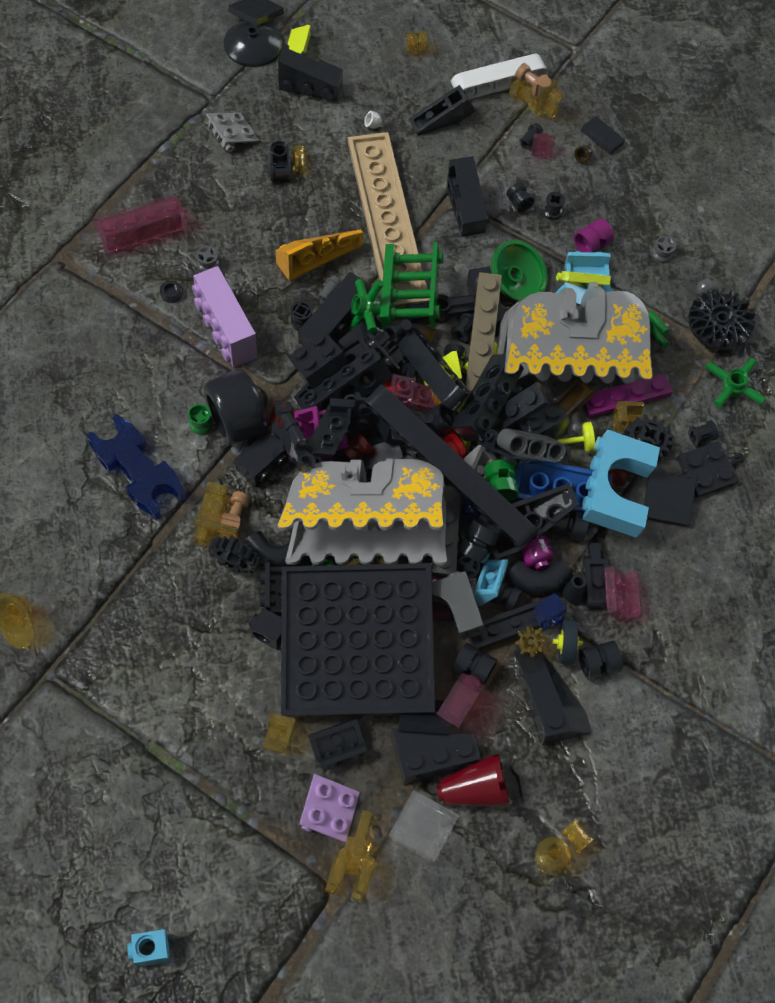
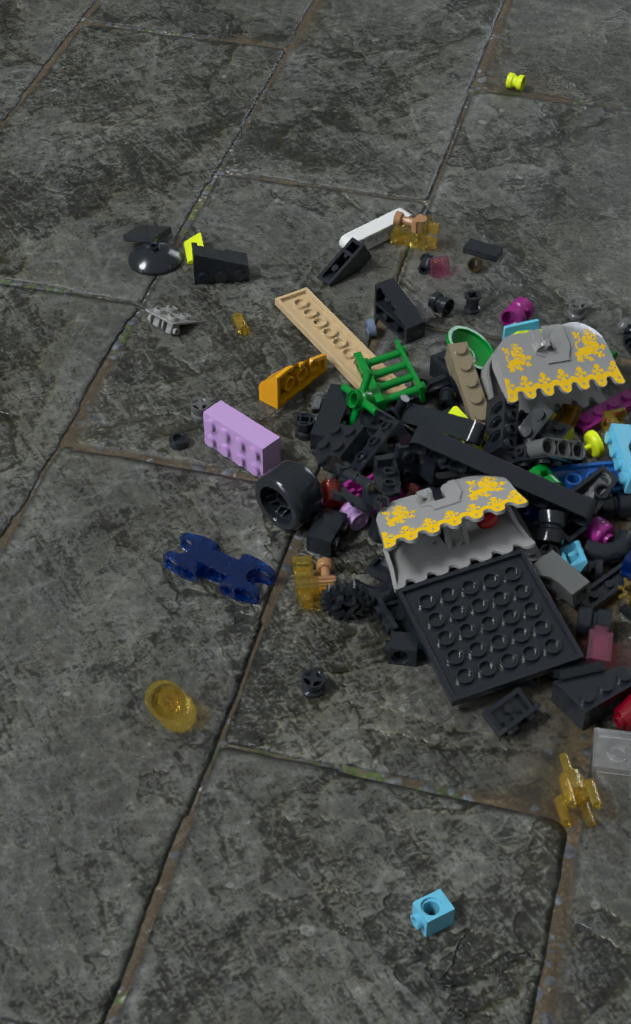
camera: 15 degrees left, 20 degrees down
(140, 223) = (127, 400): clear pink slope -> none
(161, 634) = (310, 678): none -> black wheel
(200, 419) = (257, 519): green wheel -> none
(279, 733) = (455, 721): clear yellow panel -> none
(280, 163) = (226, 328): black piece -> none
(329, 808) = (528, 762): lavender hinge -> none
(373, 120) = (288, 283): white hinge -> none
(416, 41) = (295, 224): clear yellow wheel -> none
(430, 207) = (370, 327): none -> sand blue tile

